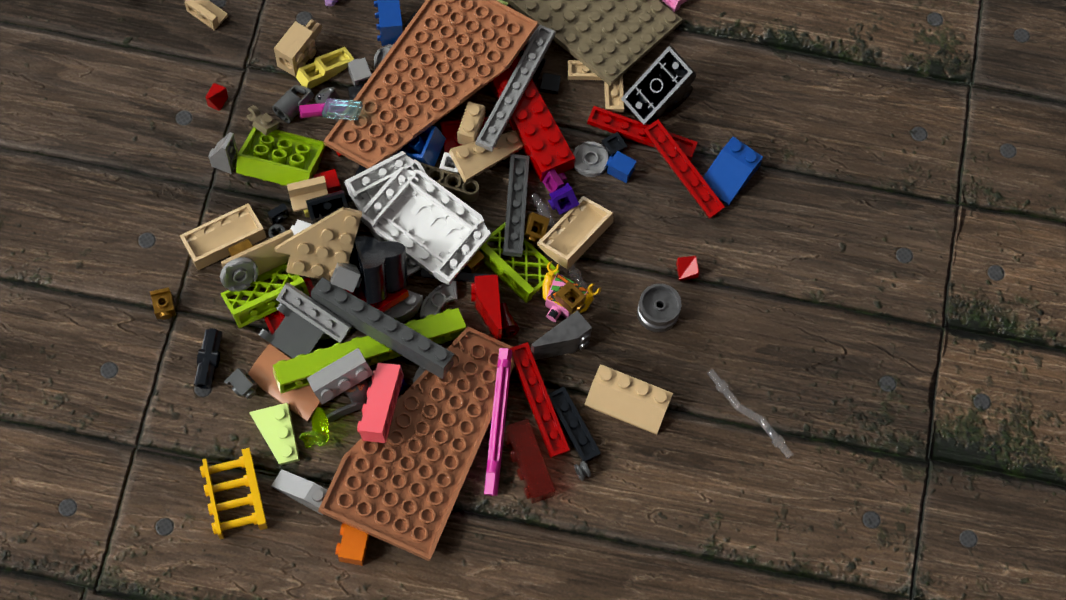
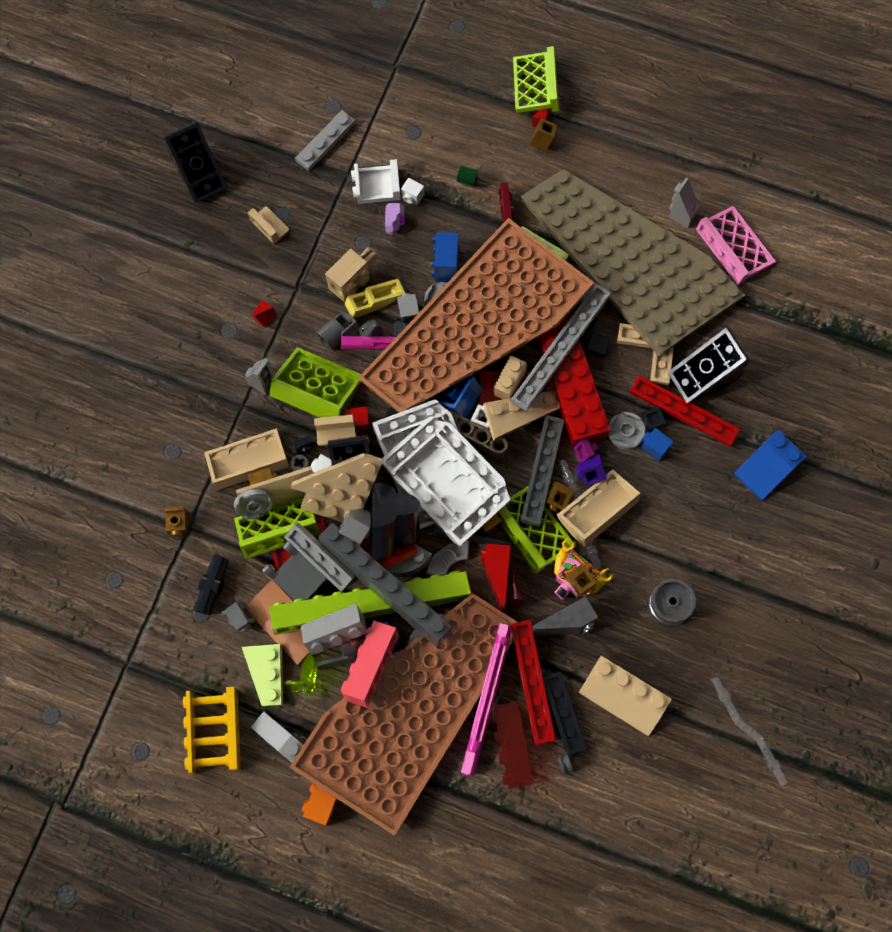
camera: 20 degrees right, 5 degrees up
(264, 122) = (304, 347): dark tan plate -> none
(342, 109) = (382, 347): clear light blue tile -> none
(684, 169) = (721, 456): red plate -> none
(687, 267) = (708, 562): red slope -> none

